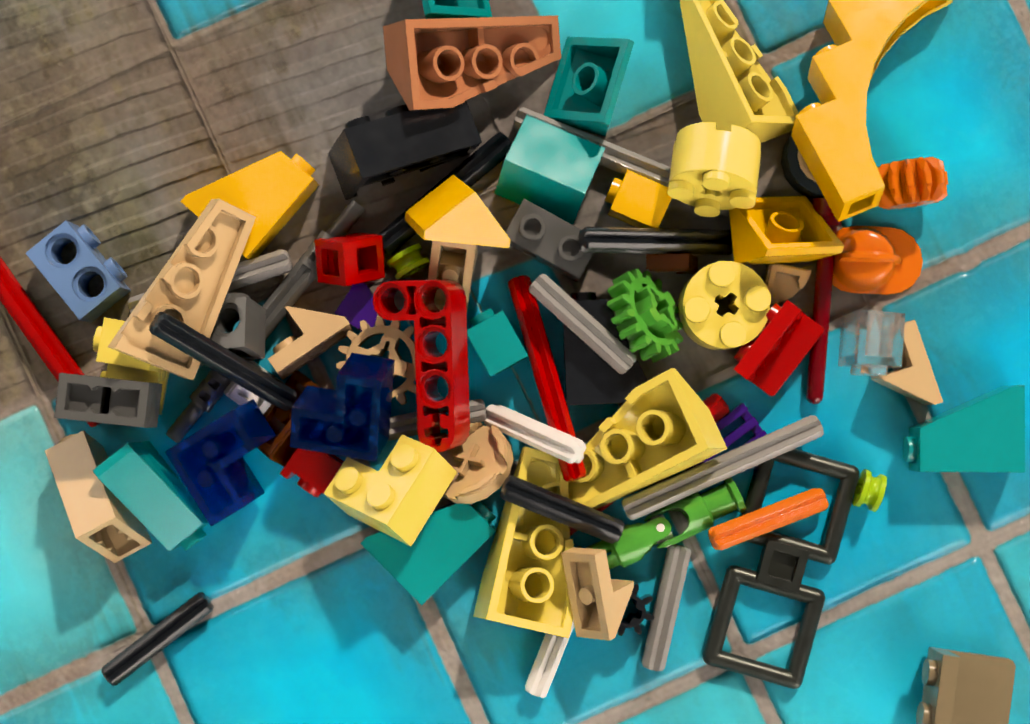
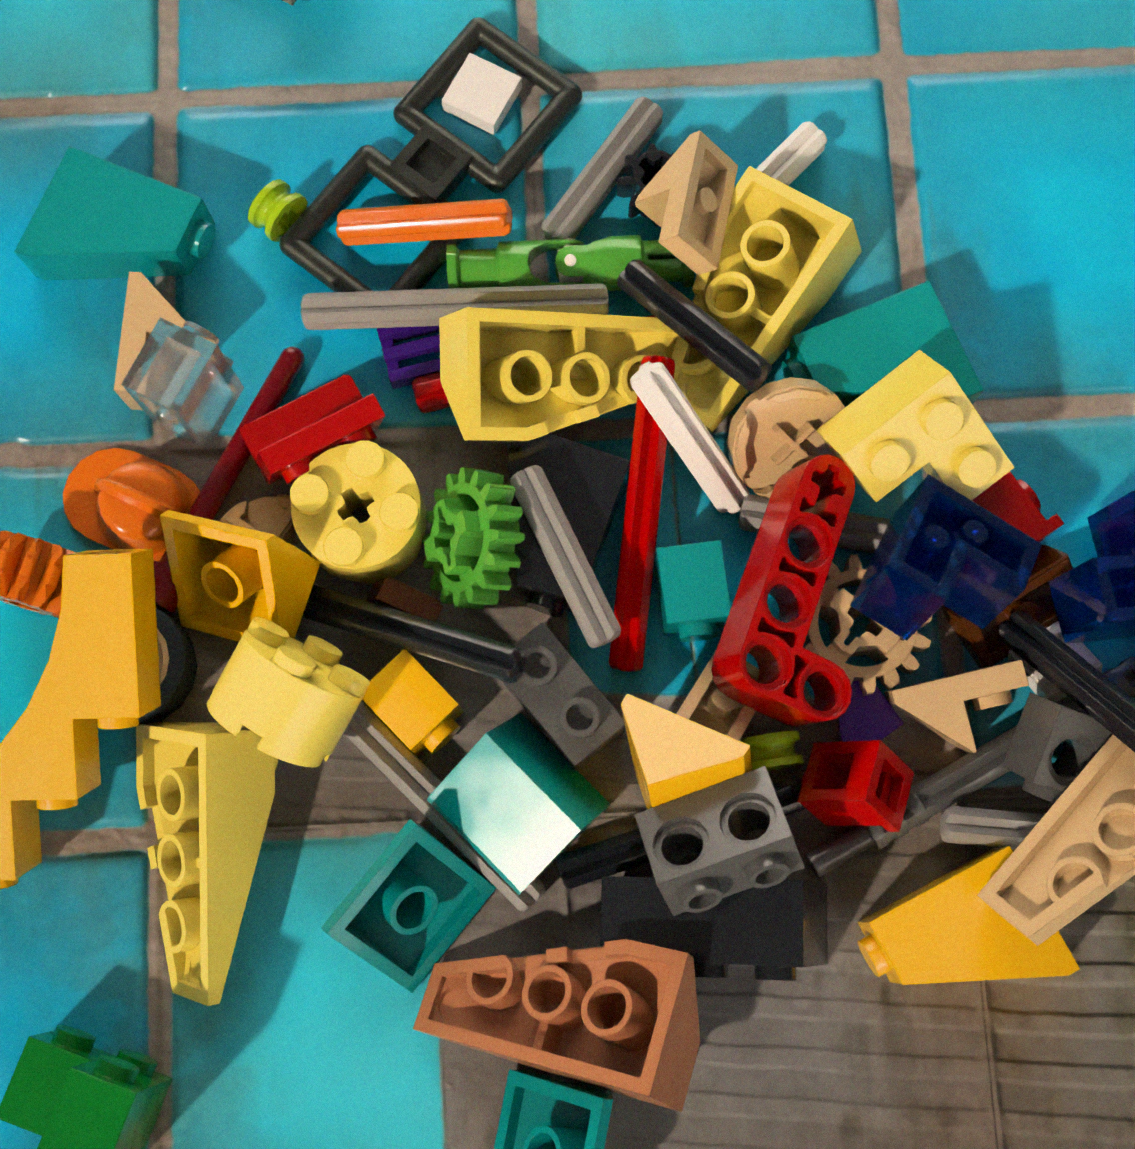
camera: 160 degrees left, 10 degrees down
(424, 191) = (714, 825): none -> dark grey brick
(771, 632) = (482, 93): none -> white tile

